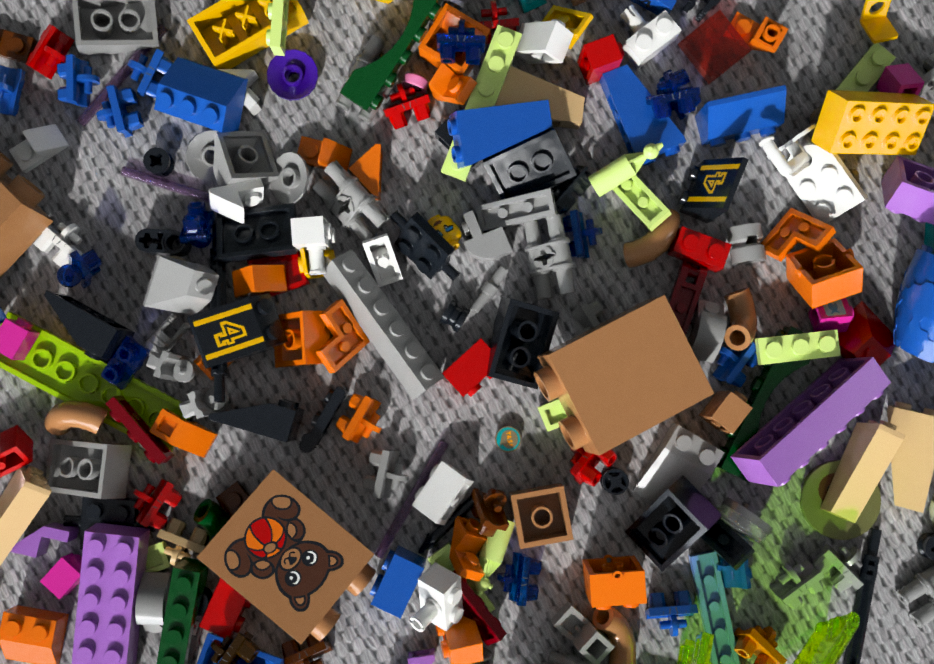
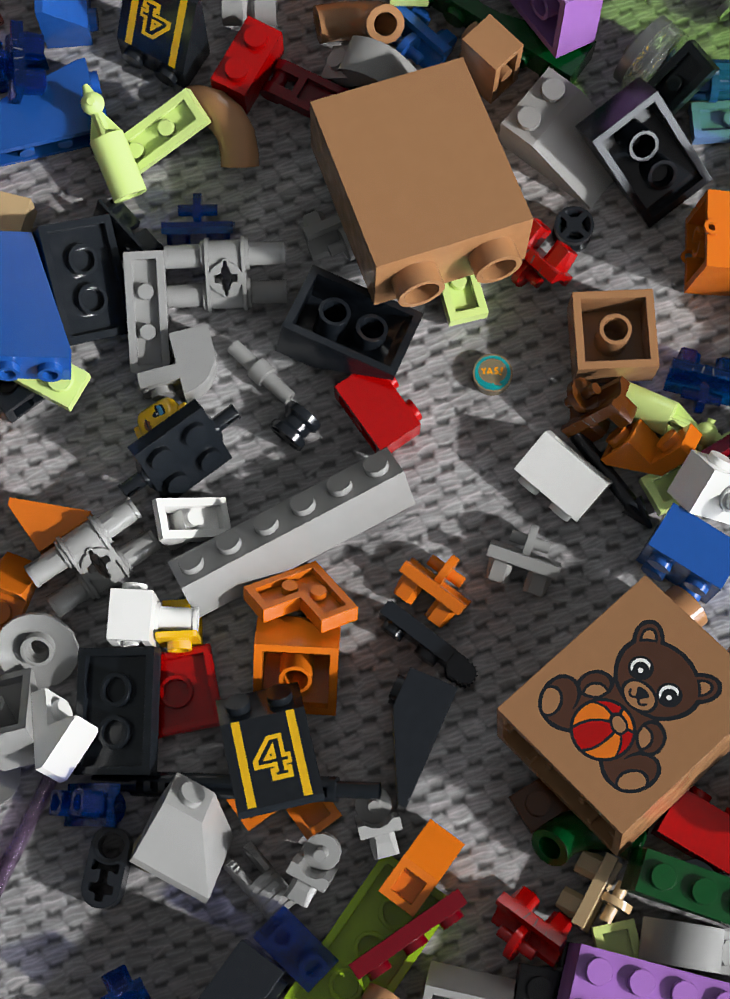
camera: 80 degrees left, 10 degrees down
(259, 280) = (193, 718): orange slope -> none
(407, 505) = (566, 529): clear purple piece -> none

